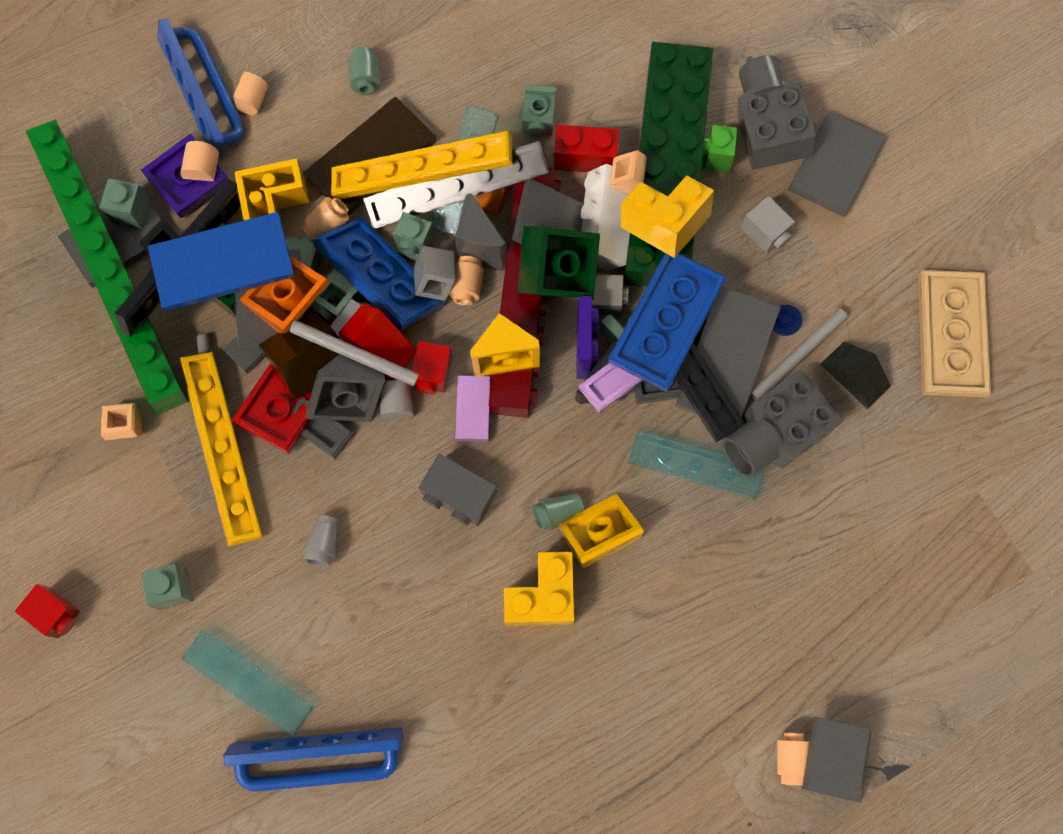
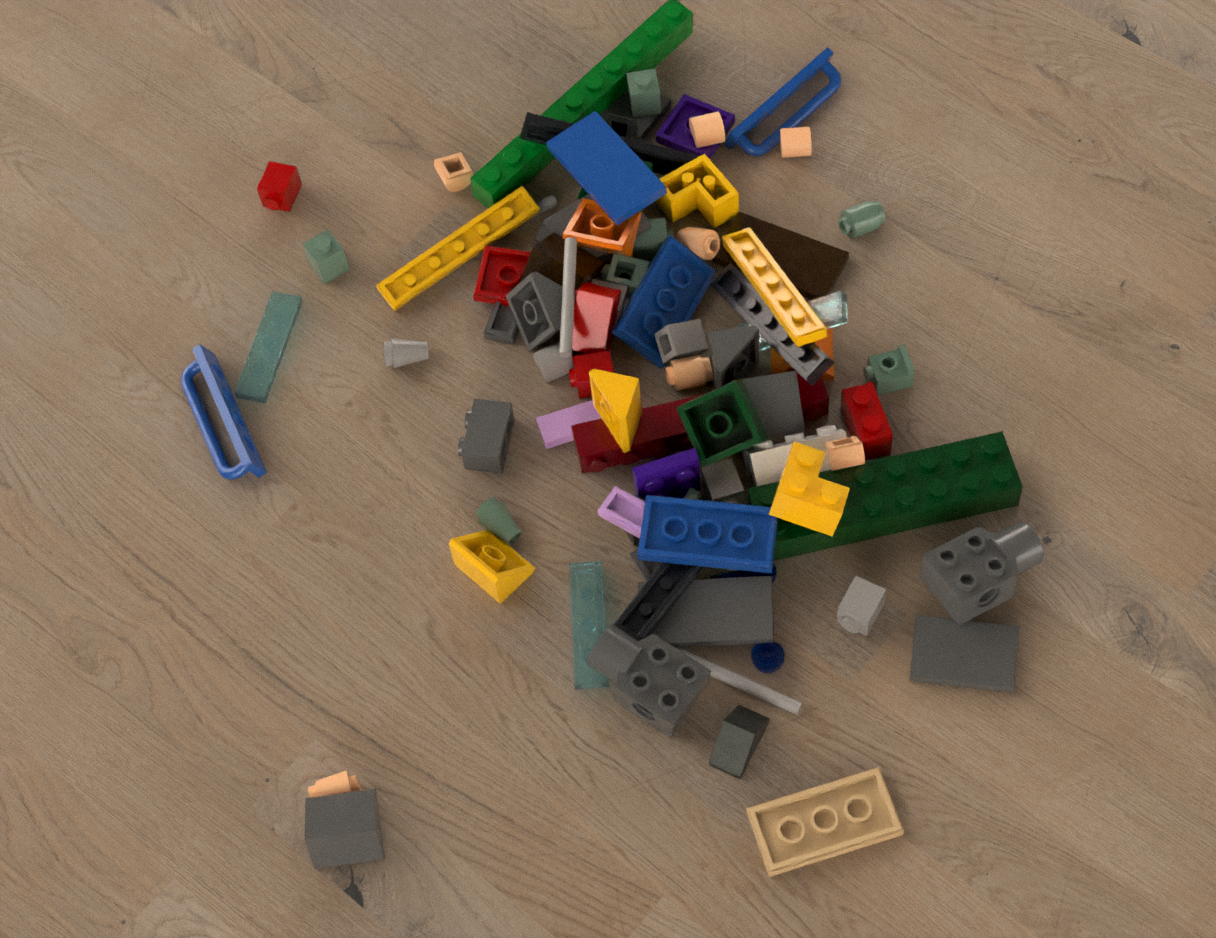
camera: 75 degrees right, 15 degrees down
(411, 235) = (712, 311): sand green brick -> none
(551, 601) = (413, 540): yellow brick -> none
(719, 149) = (919, 530): bright green brick -> none

